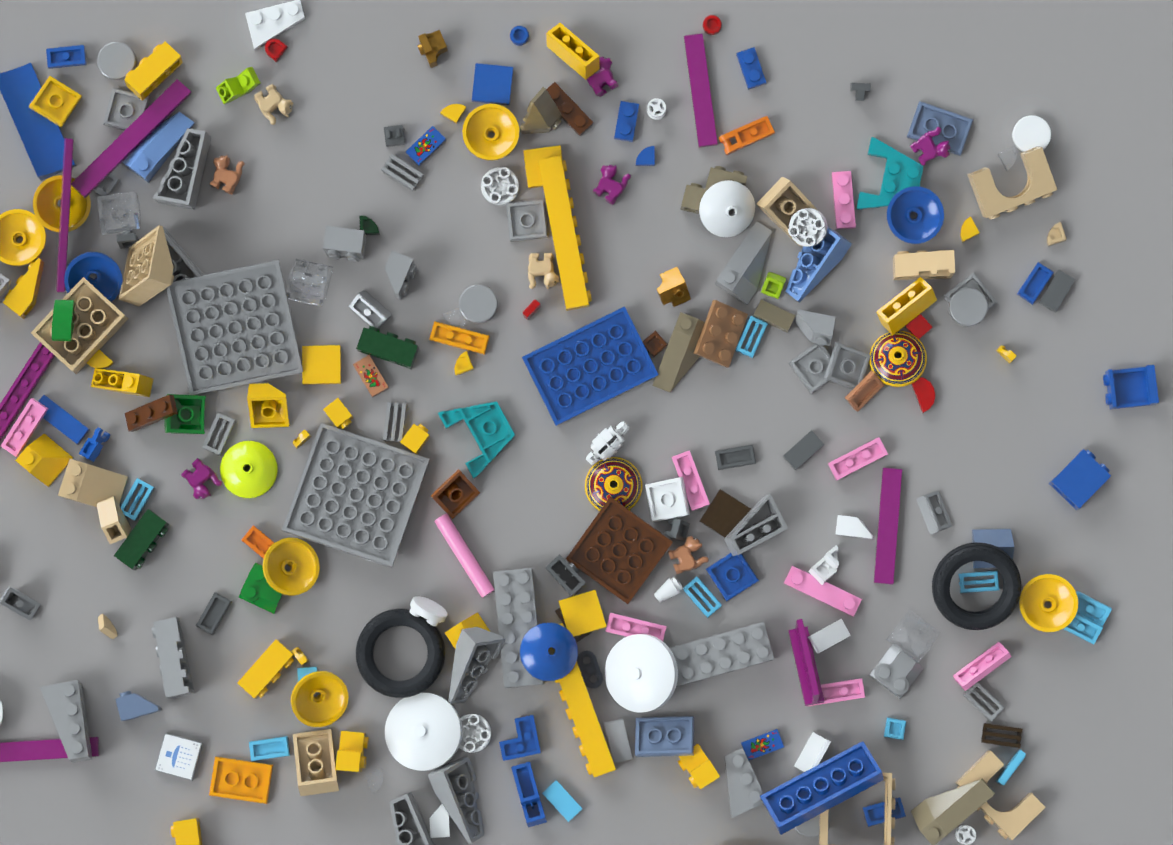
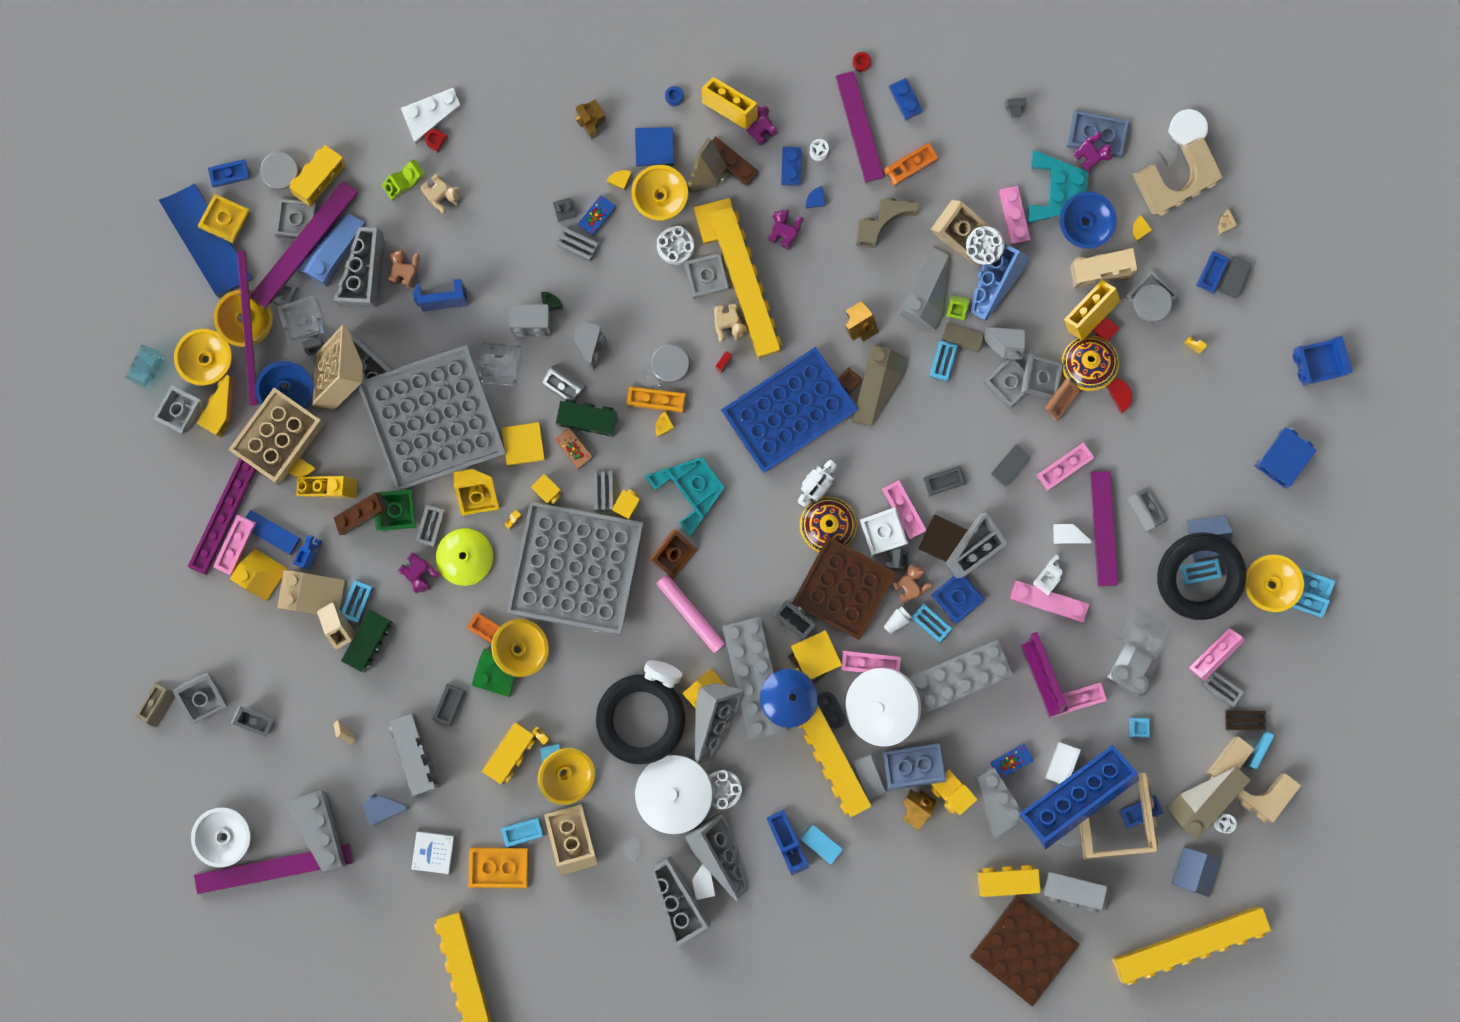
camera: 15 degrees left, 0 degrees up
(63, 320) = (259, 433): green slope -> none
(260, 212) = (441, 300): none -> blue panel
(351, 751) = (605, 824): yellow brick -> none
(525, 744) = (778, 791): blue plate -> none
(662, 777) = (918, 807): none -> pearl gold brick
(716, 205) = (892, 238): white dish -> none
(720, 333) = (913, 361): medium nougat plate -> none
(829, 636) = (1062, 645): white tile -> none

